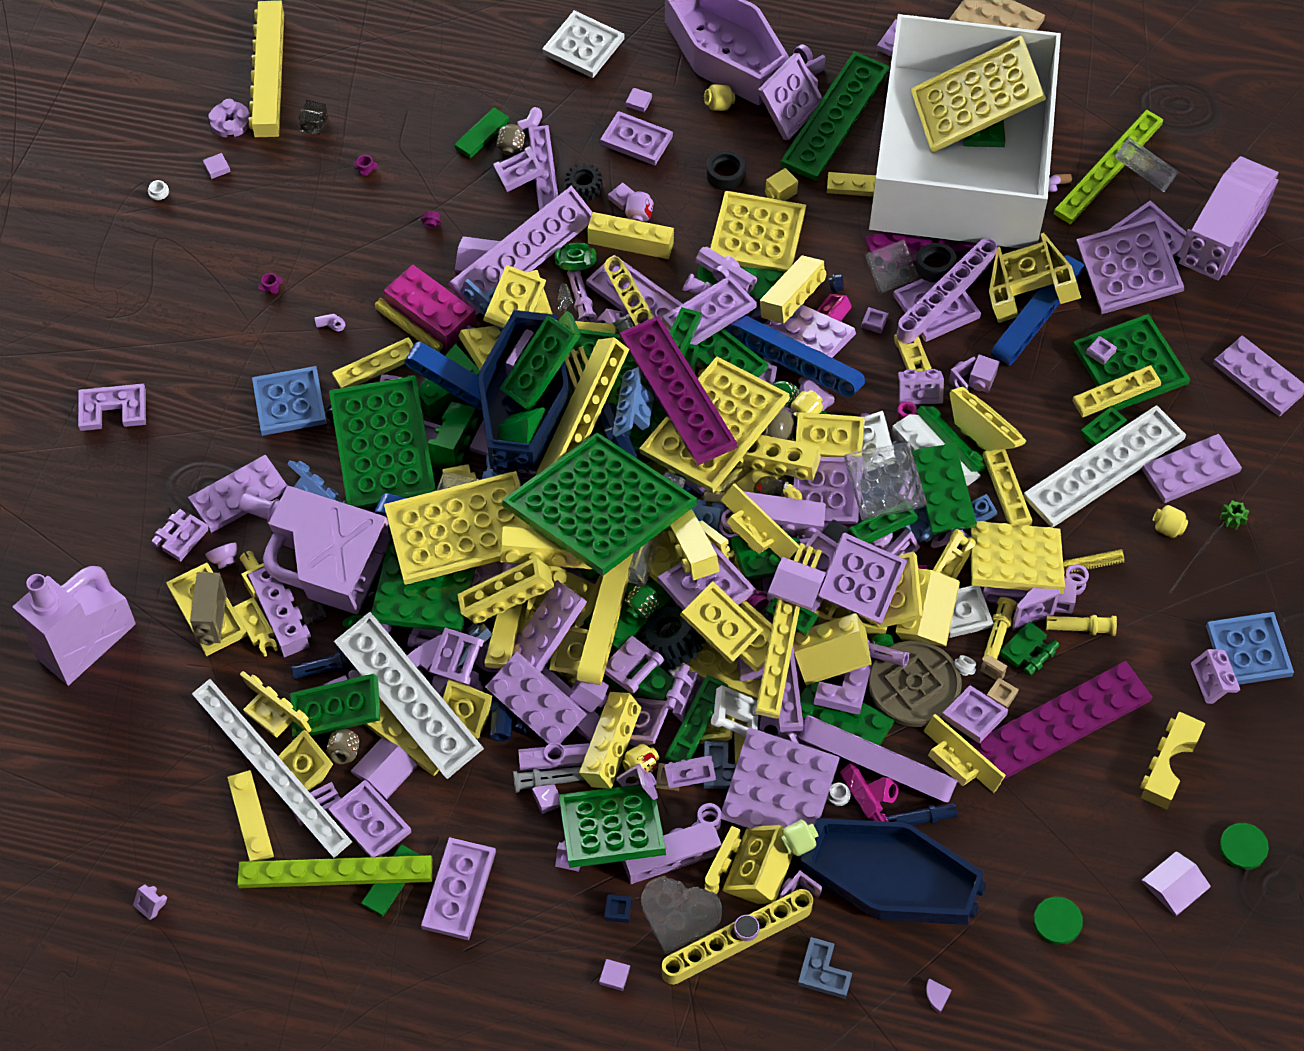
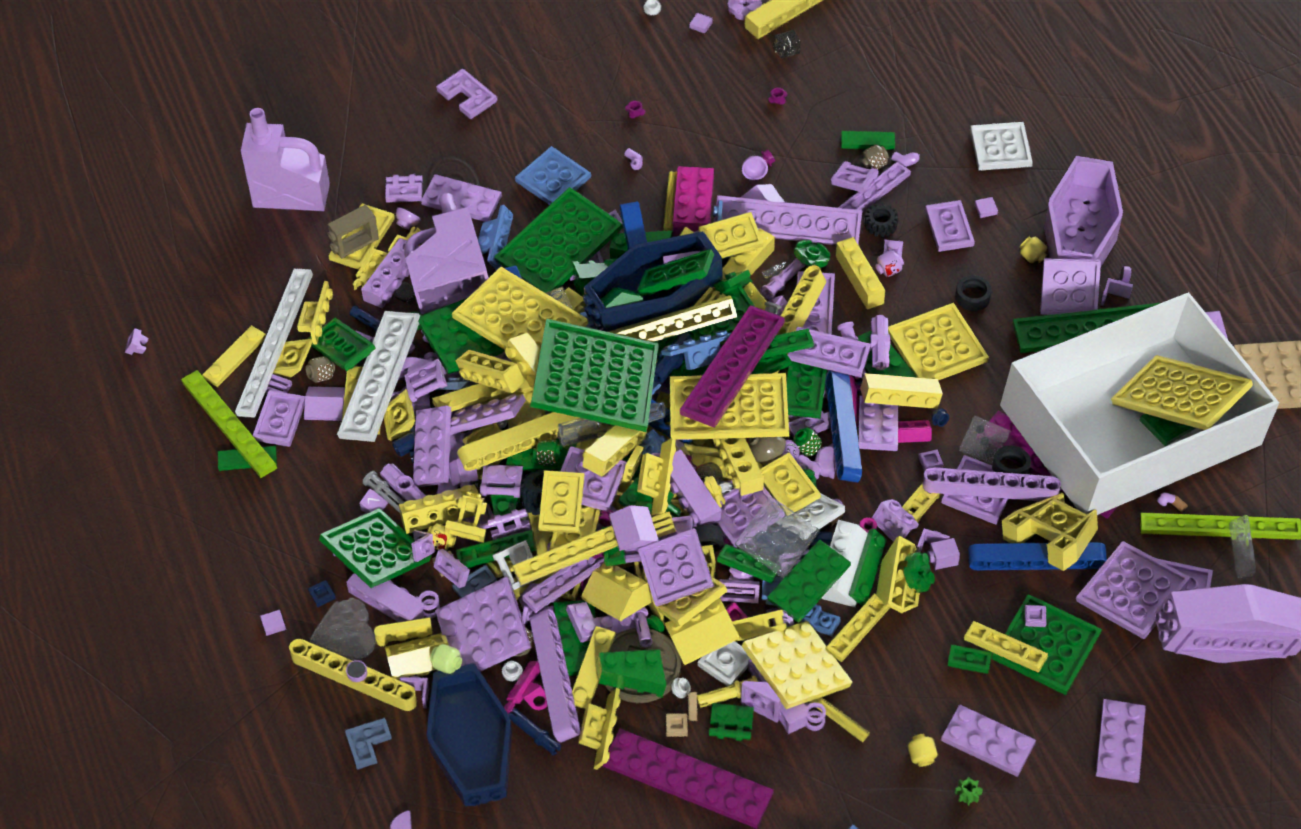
camera: 55 degrees right, 5 degrees down
(373, 364) = (612, 199): light yellow plate -> none
(434, 234) = (754, 168): none -> lavender piece
(458, 888) = (268, 496): lavender plate -> none
(645, 700) = (472, 503): none -> light yellow tile
(781, 185) = (990, 333): light yellow brick -> none
(807, 403) = (806, 457): light yellow head -> none
(892, 720) = (587, 678): none -> light yellow plate
(932, 687) = (633, 670): none -> green wedge
(974, 714) = (643, 716): lavender plate -> none
(993, 403) = (918, 572): none -> green plate
(1092, 625) = (785, 750): light yellow pin -> none
(1104, 466) = (935, 679): white plate -> none

